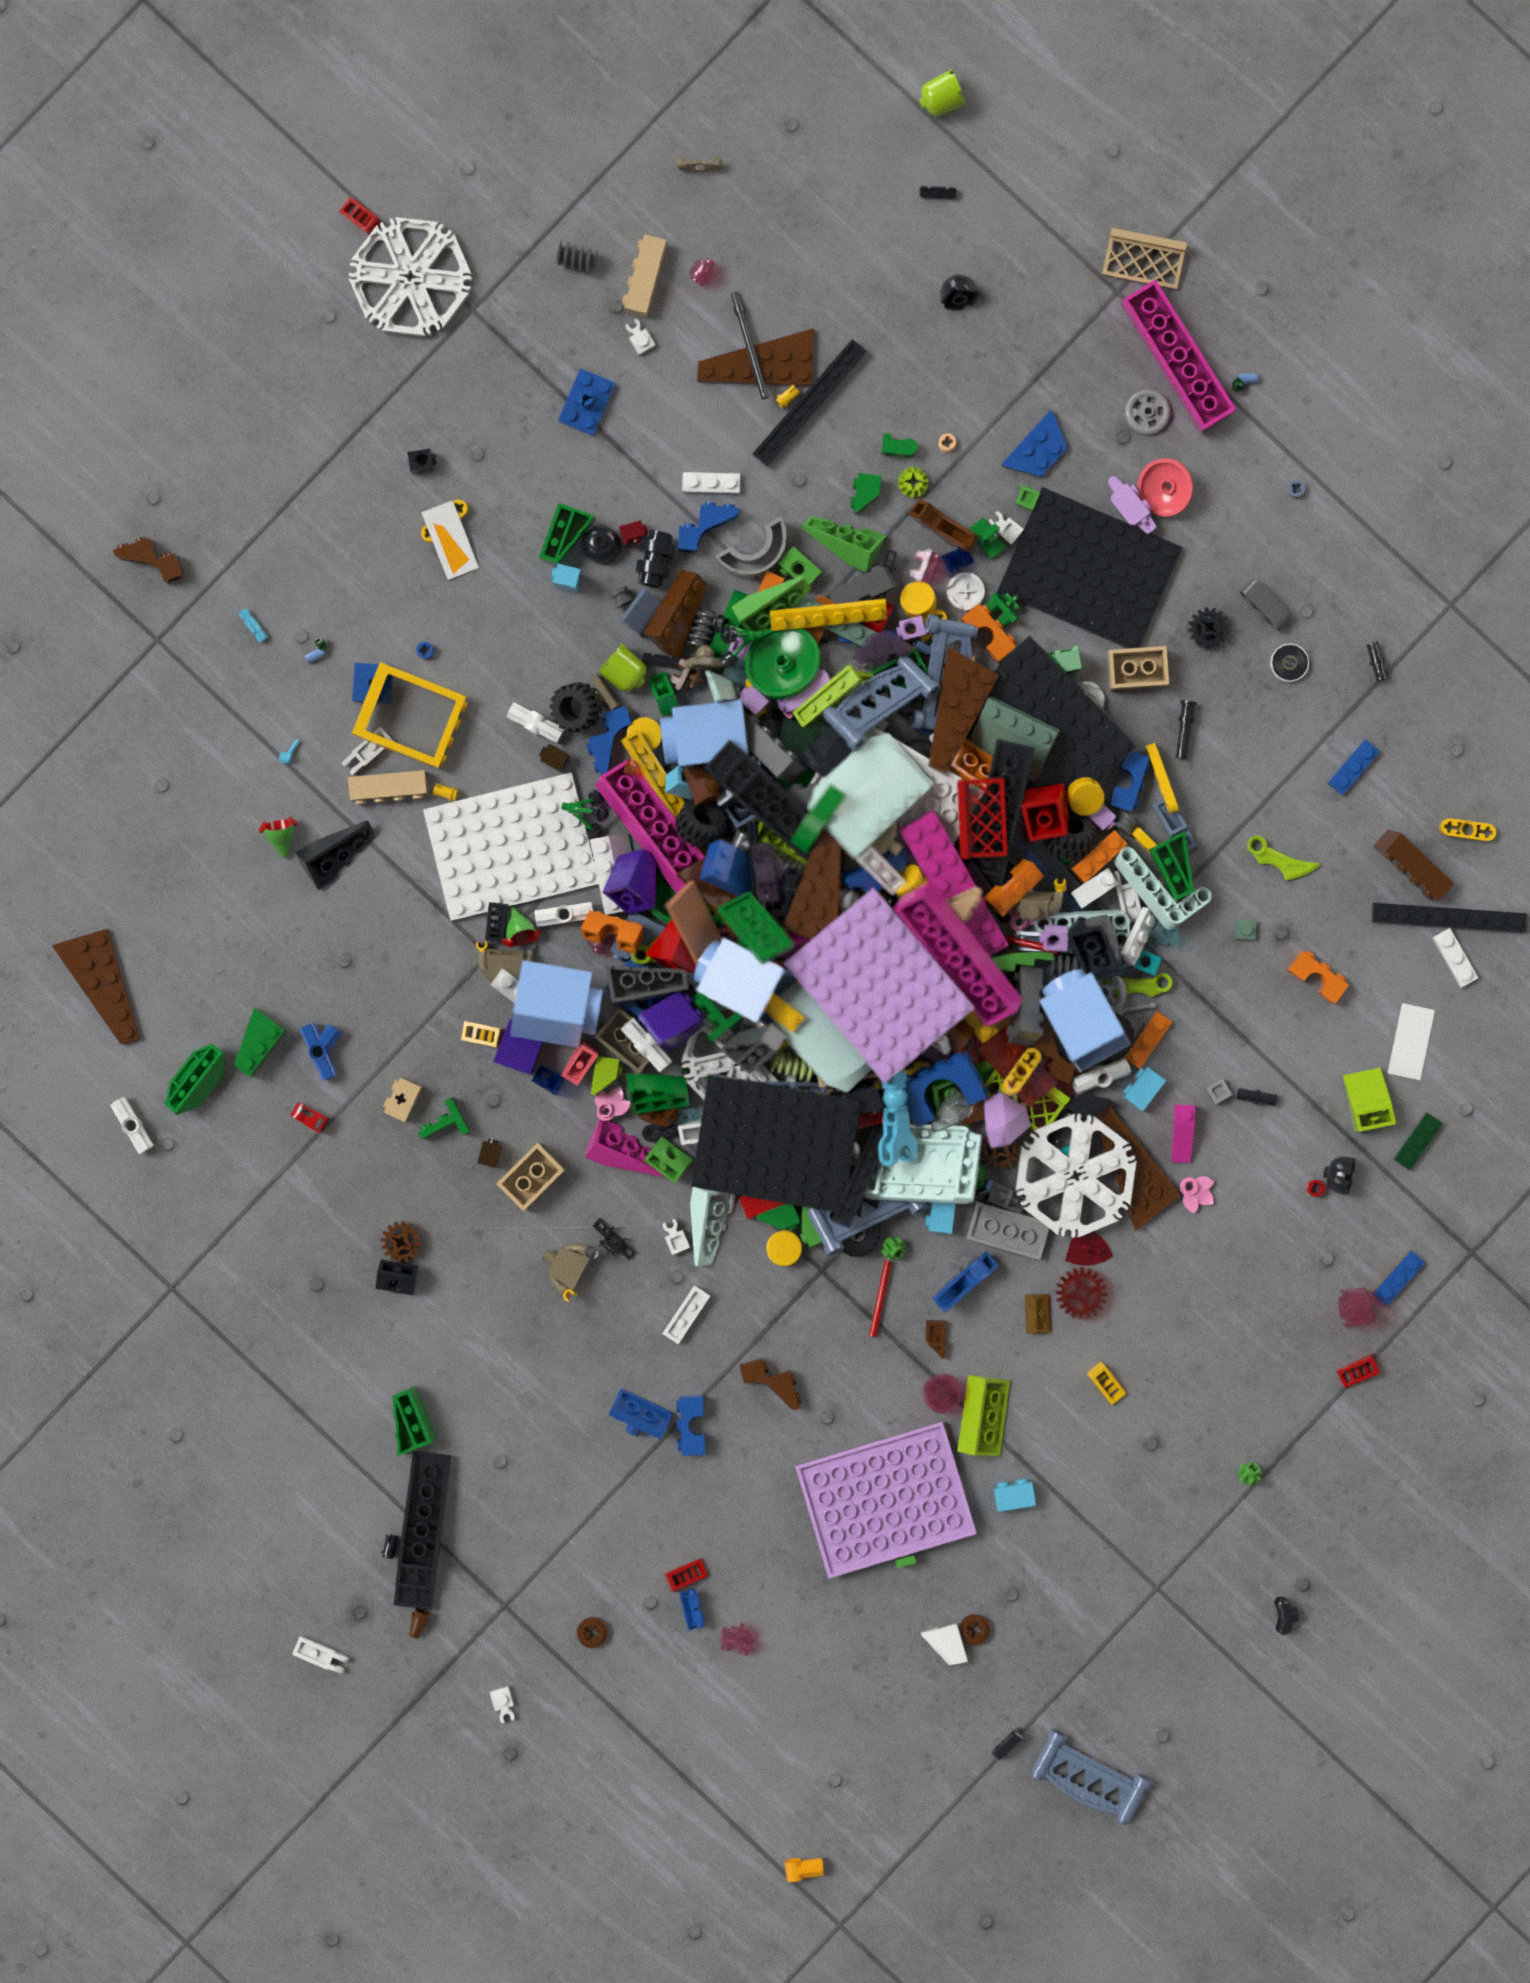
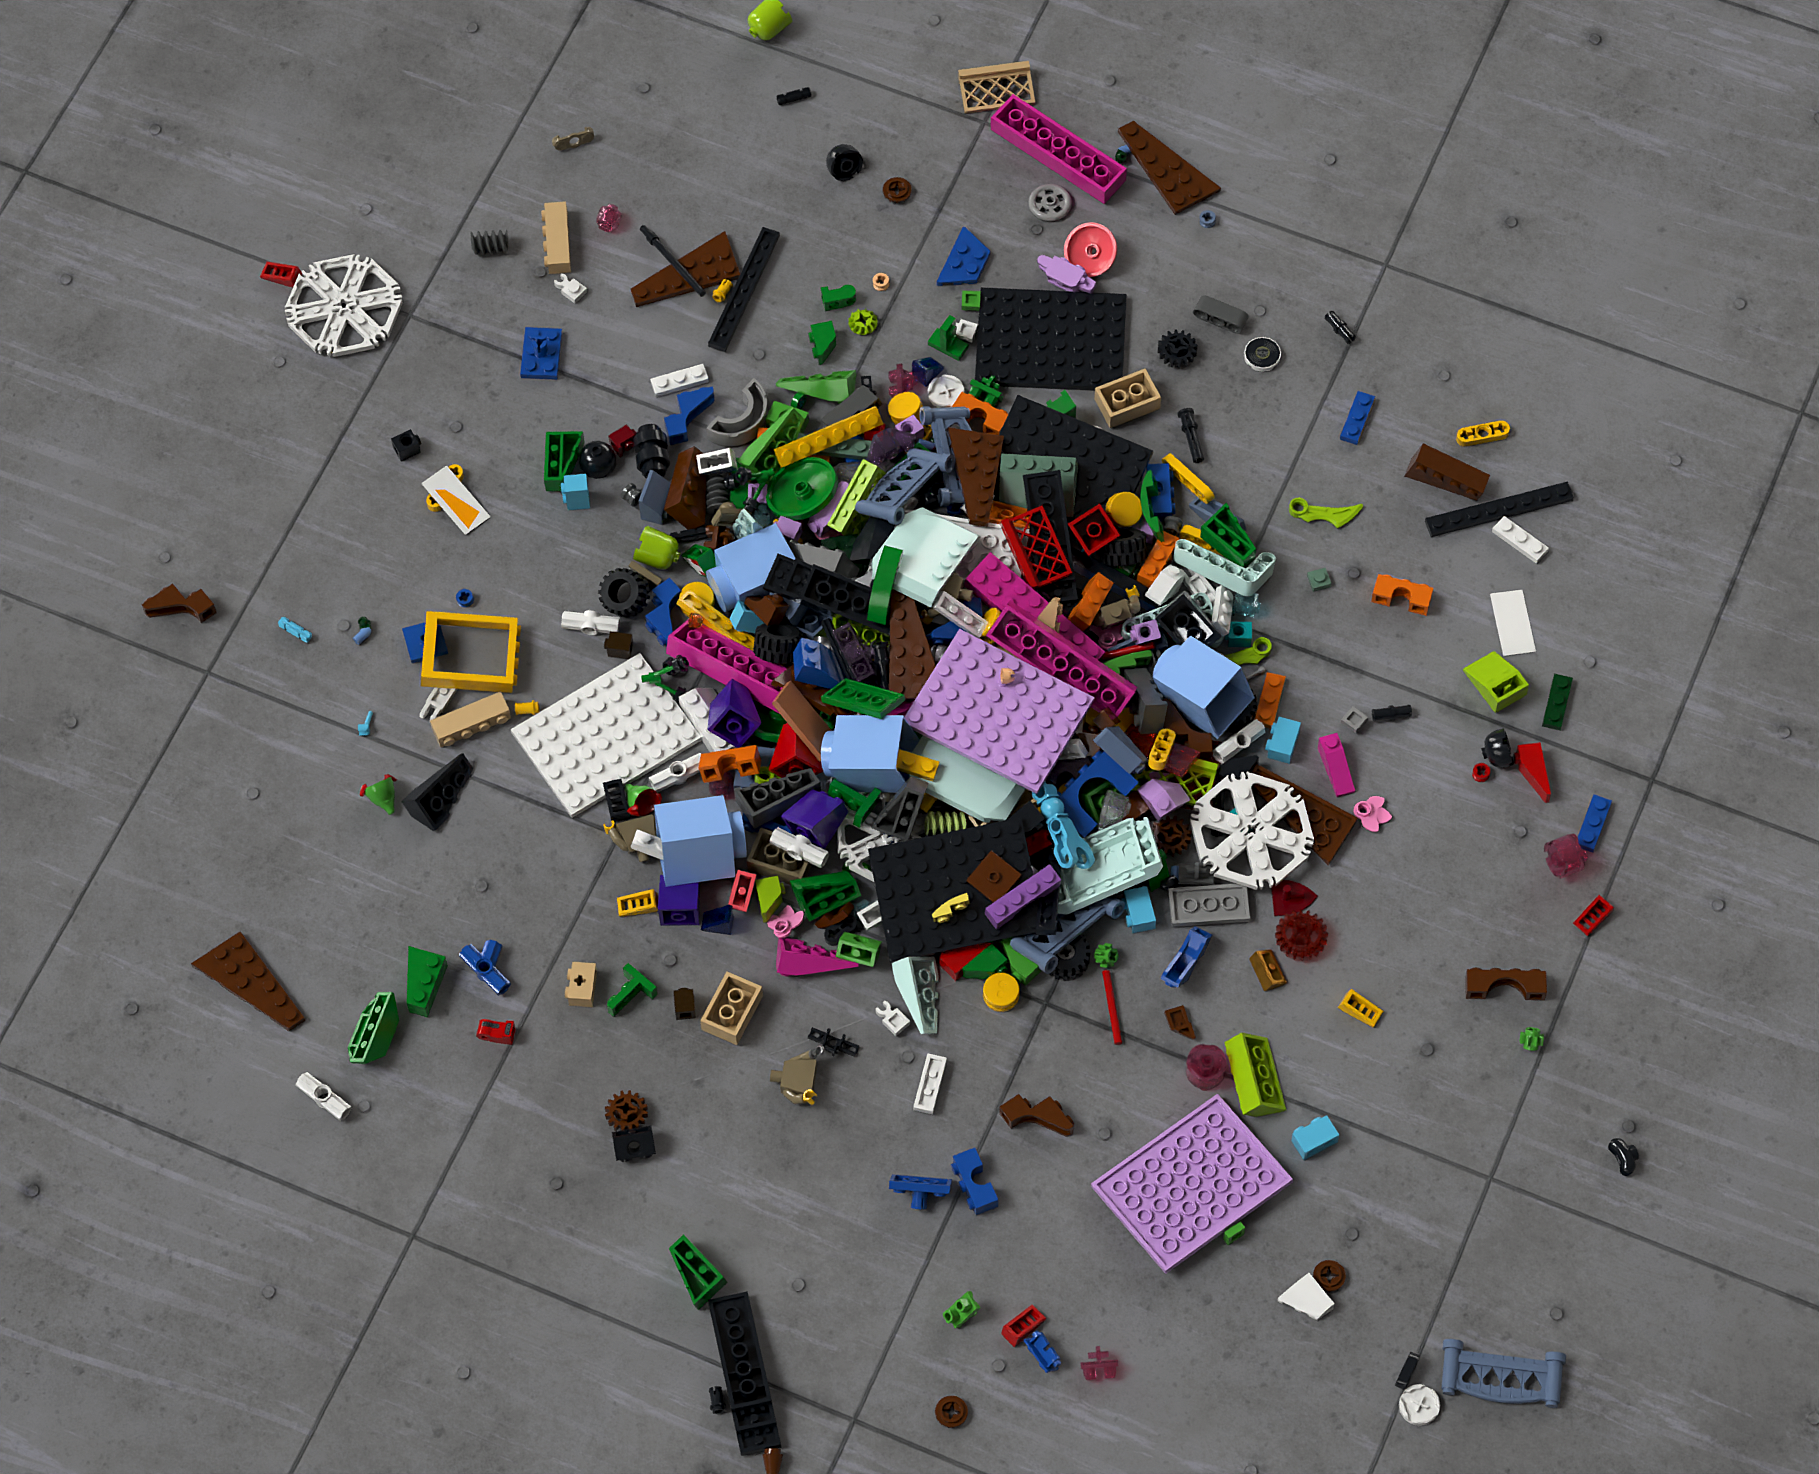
camera: 20 degrees left, 25 degrees down
(634, 1545) = (961, 1310): none -> bright green hips
(716, 599) = (720, 462): none -> white torso
(756, 1166) = (944, 912): none -> light yellow slope
(813, 1151) = (993, 877): none -> reddish brown plate
(817, 551) = (798, 400): none -> green tile
(840, 1180) = (1011, 903): none -> medium lavender arch
(898, 959) = (1006, 675): none -> light nougat hinge
(944, 527) = (908, 344): reddish brown arch -> none
(980, 1027) = (1106, 719): none -> reddish brown panel
(982, 1062) = (1121, 749): none -> sand blue slope
(1006, 1776) = (1419, 1405): none -> white tile
(1009, 339) = (890, 186): none -> reddish brown gear
(1118, 781) = (1148, 490): none -> green slope
(1271, 1419) = (1530, 983): none -> reddish brown arch
(1280, 427) = (1173, 176): none -> reddish brown wing
(1366, 1199) = (1532, 767): none -> red slope

